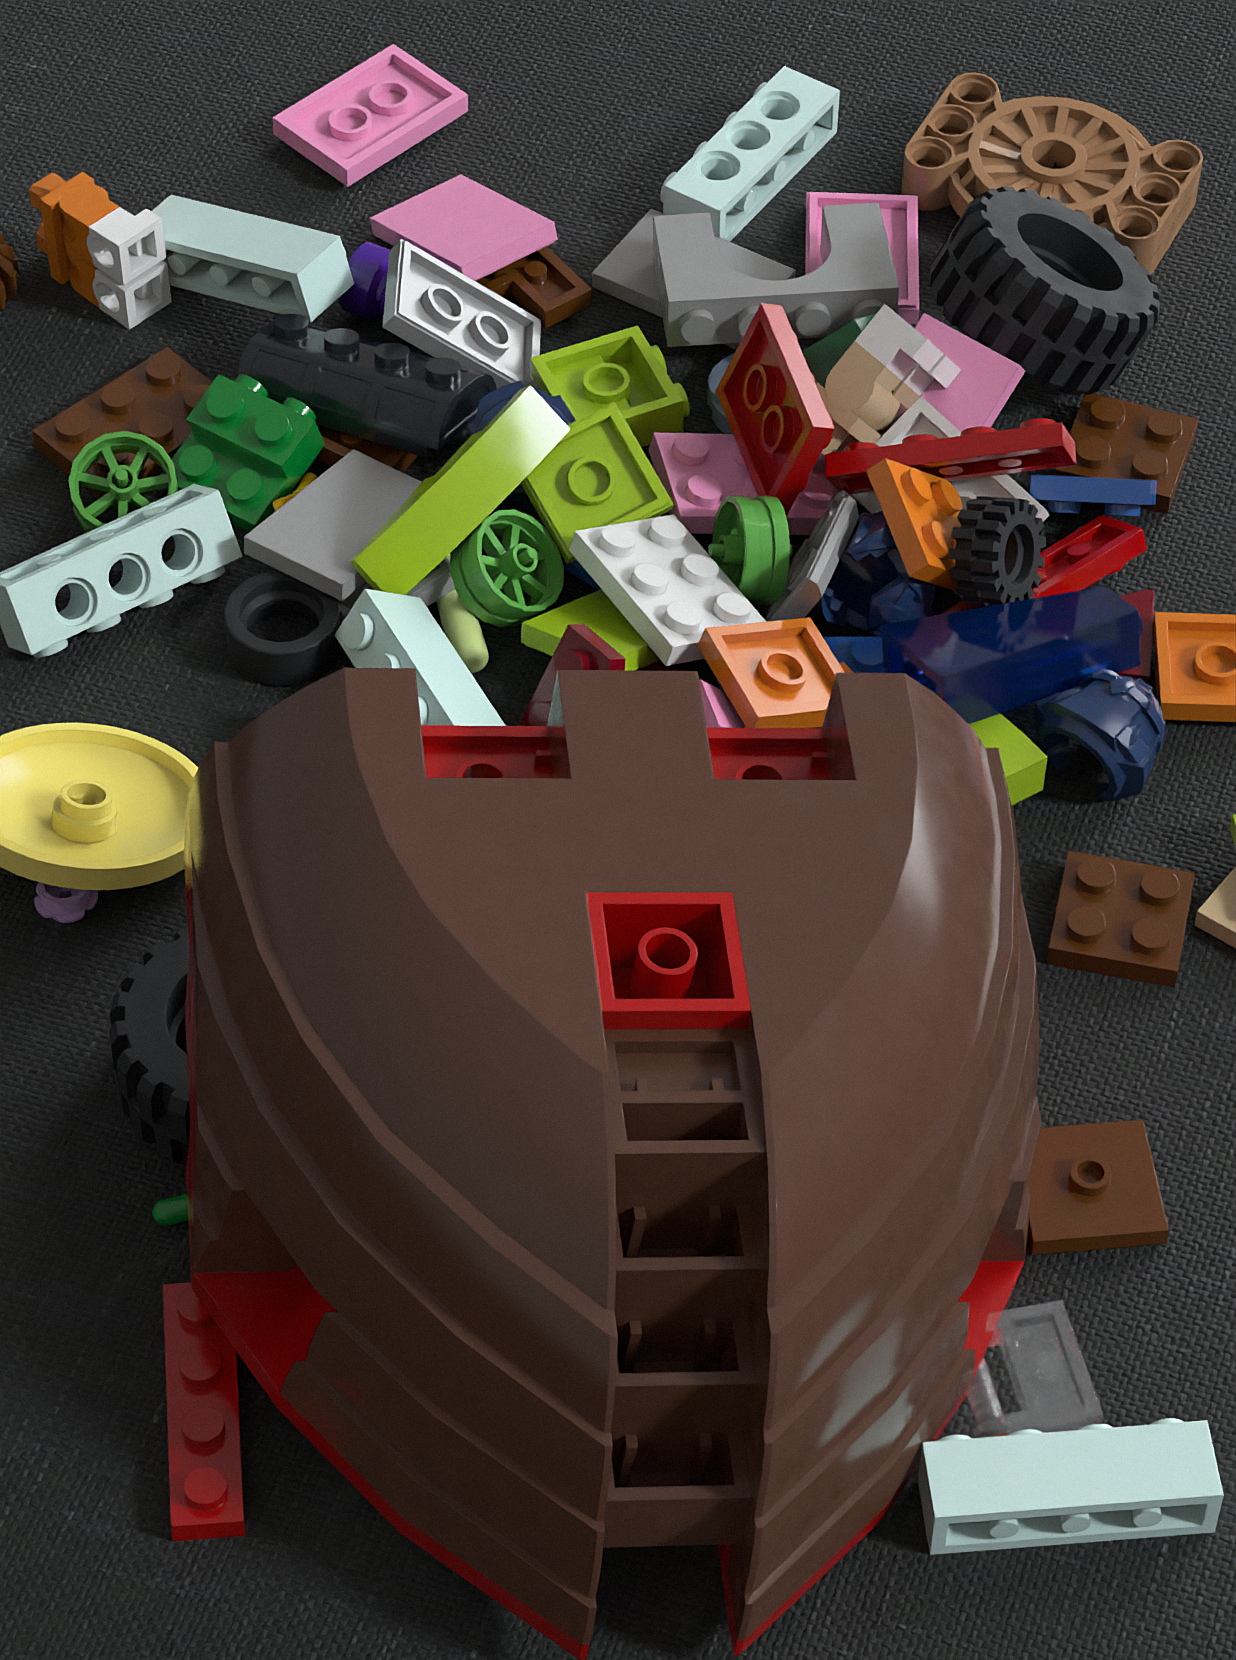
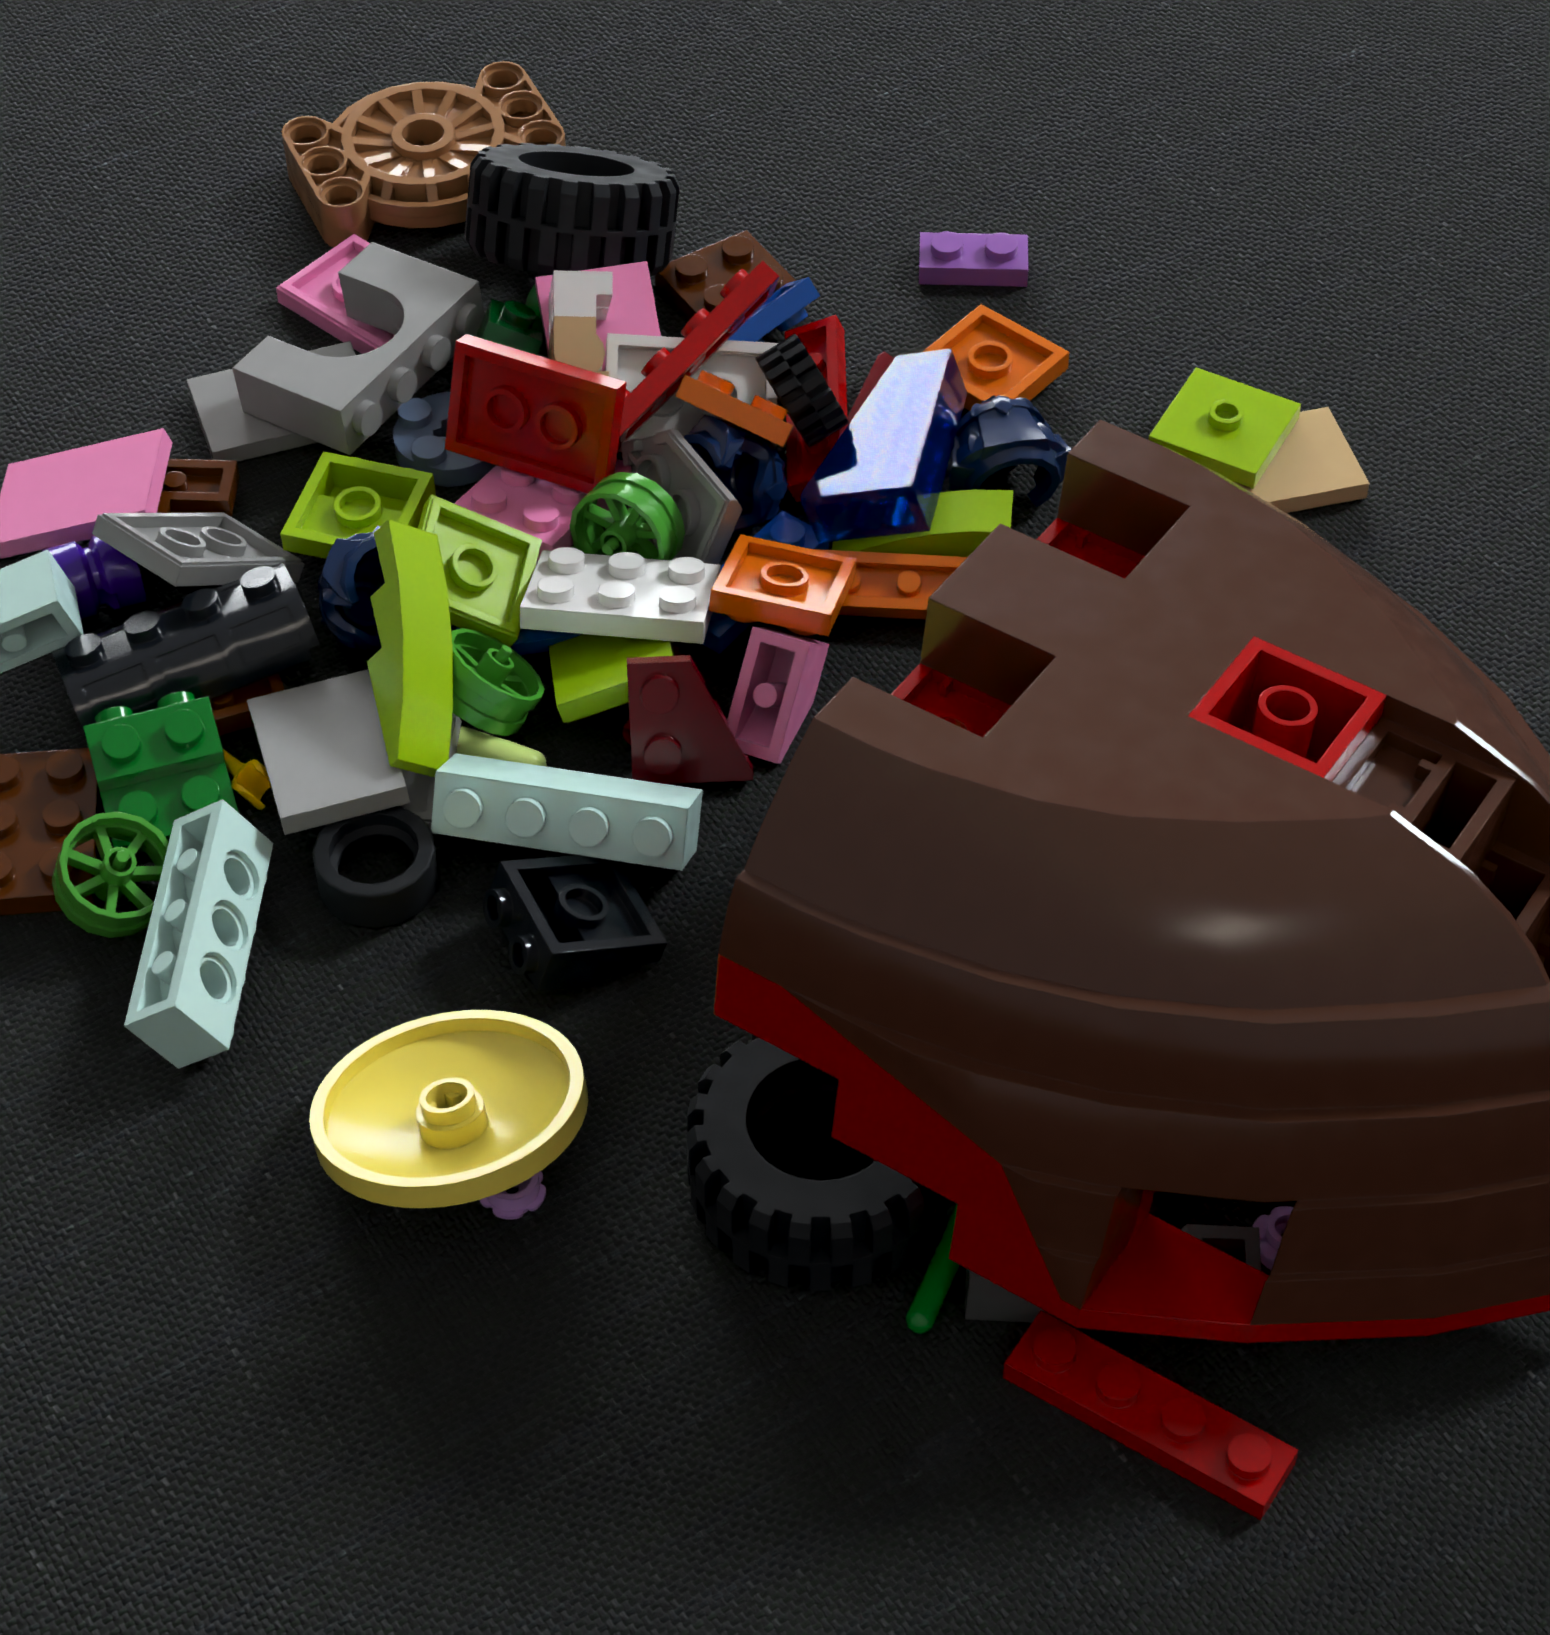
camera: 50 degrees left, 0 degrees up
(755, 152) = (205, 287): light aqua brick -> none

